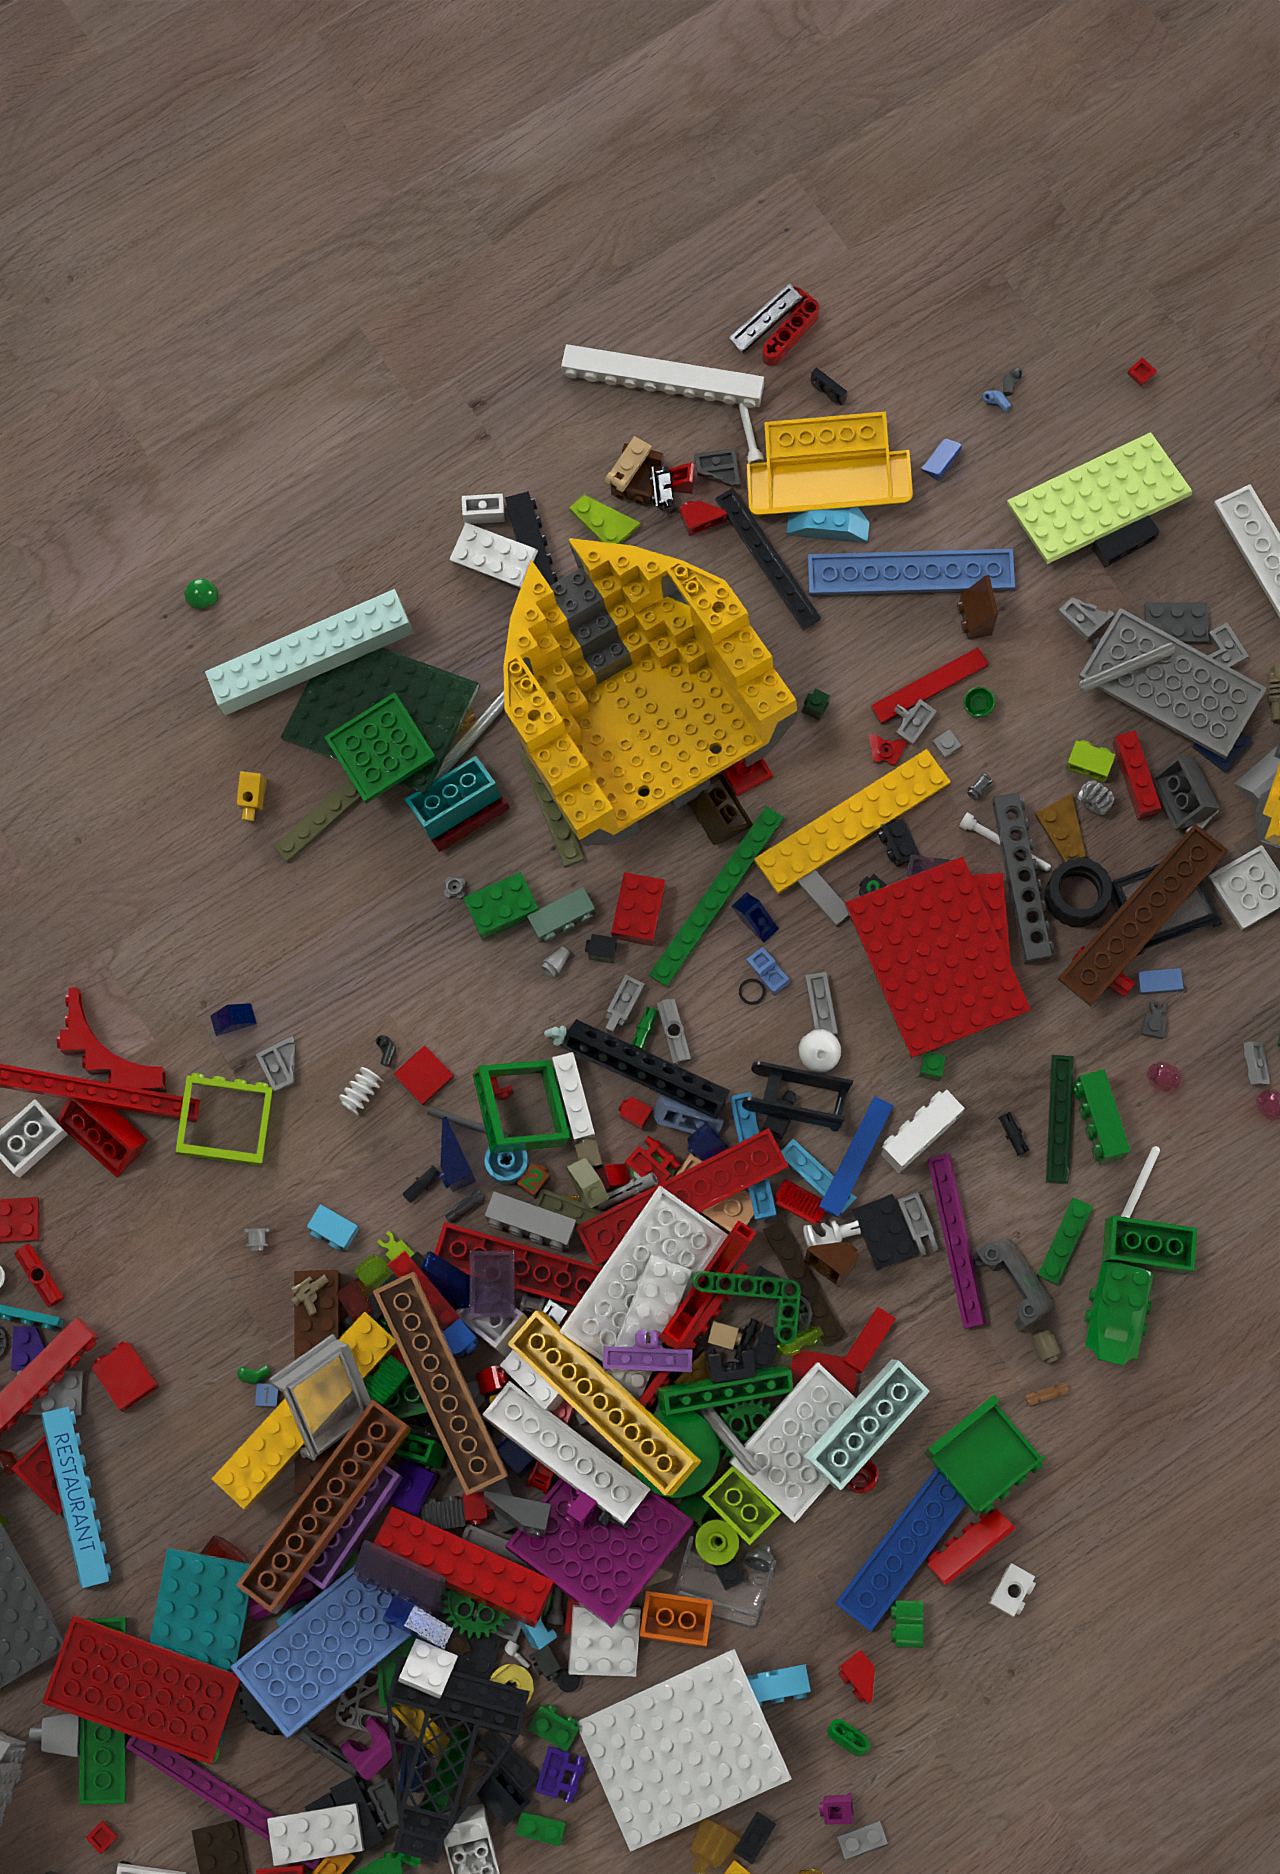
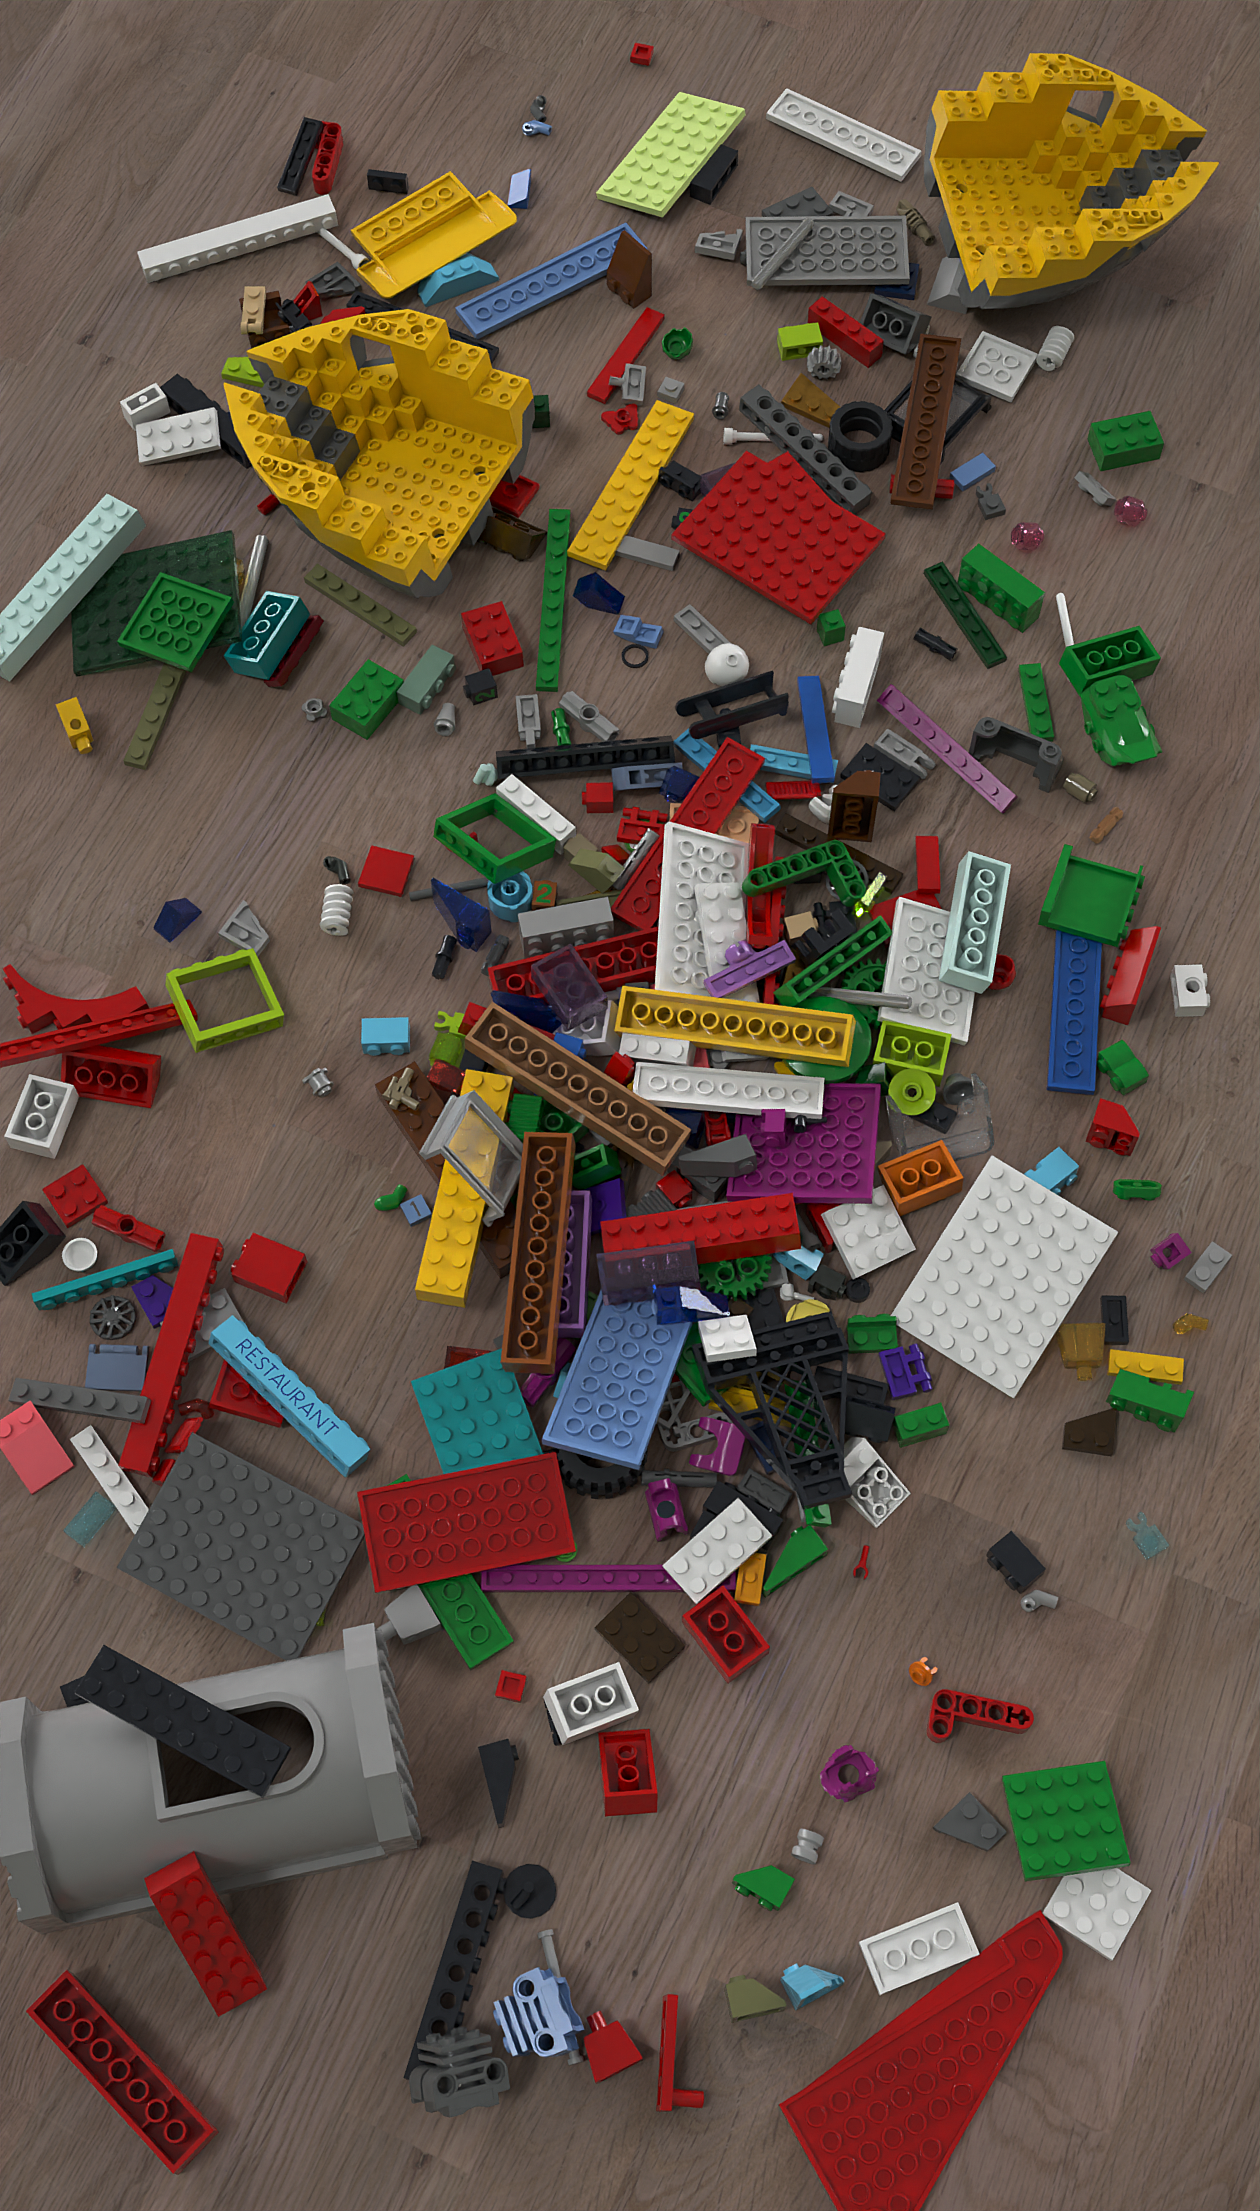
camera: 35 degrees left, 10 degrees down
(302, 1775) = (665, 1508): none -> magenta piece

